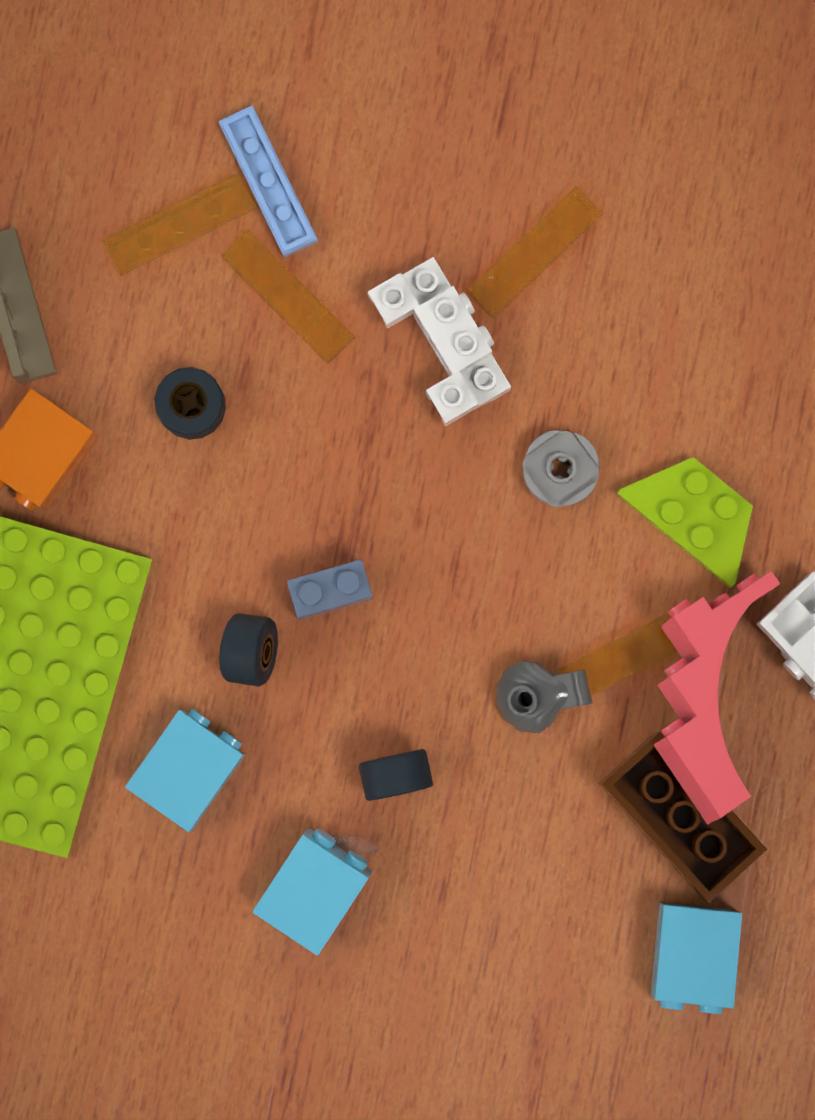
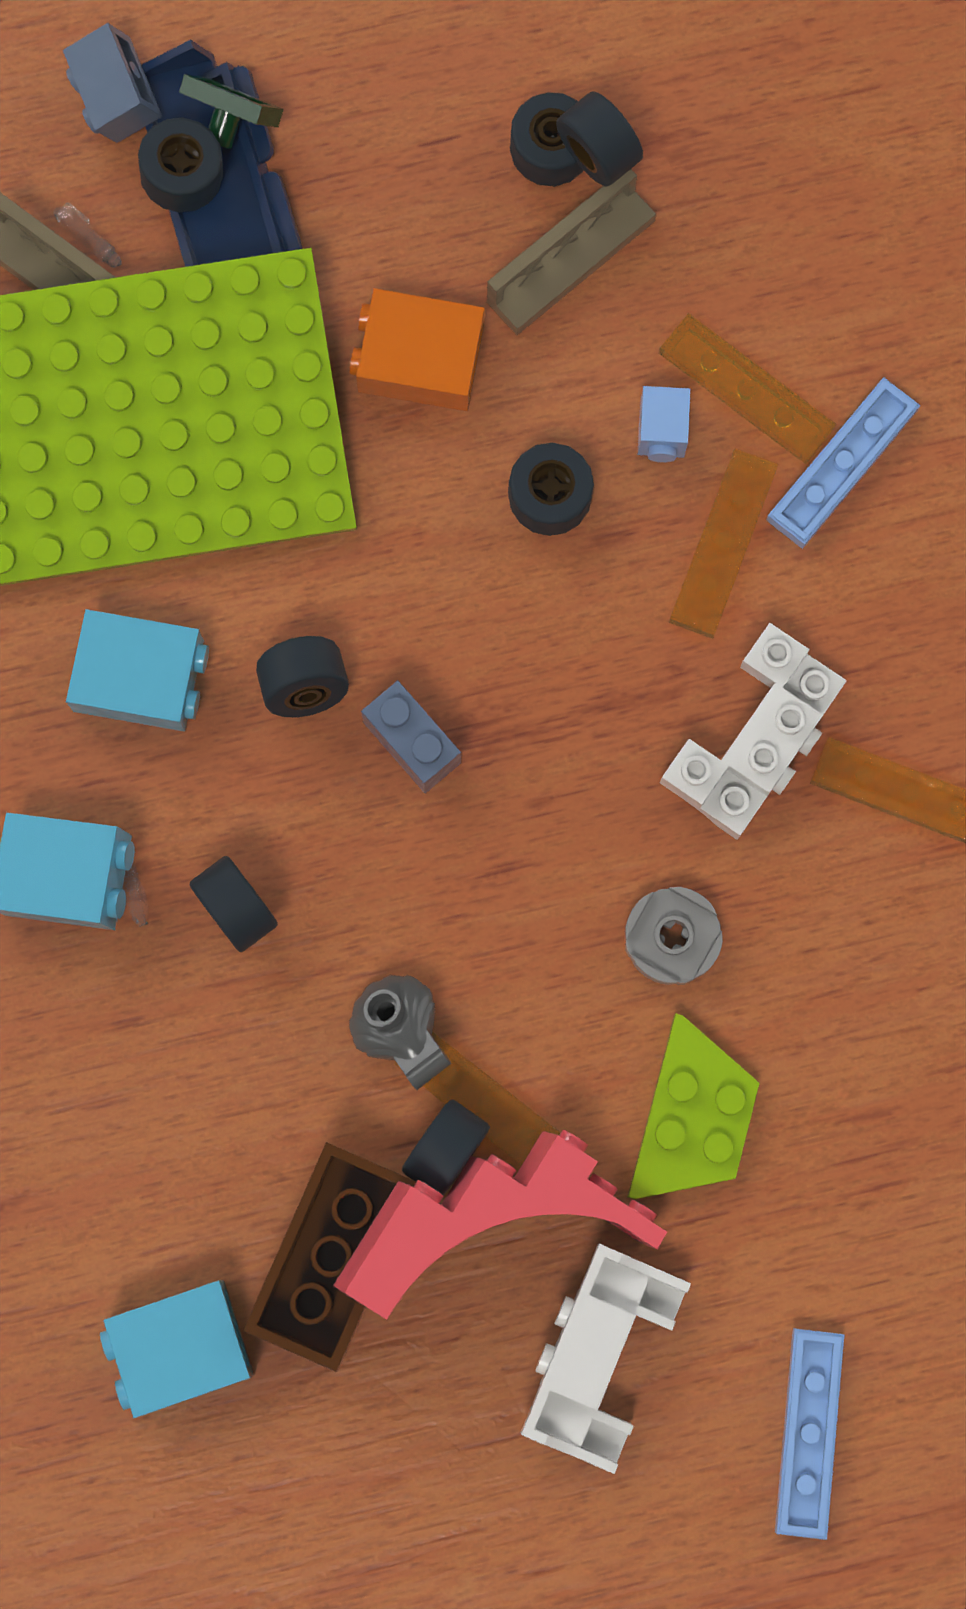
camera: 60 degrees right, 5 degrees down
(179, 297) = (663, 423): none -> light blue brick
(642, 700) = (446, 1147): none -> black wheel

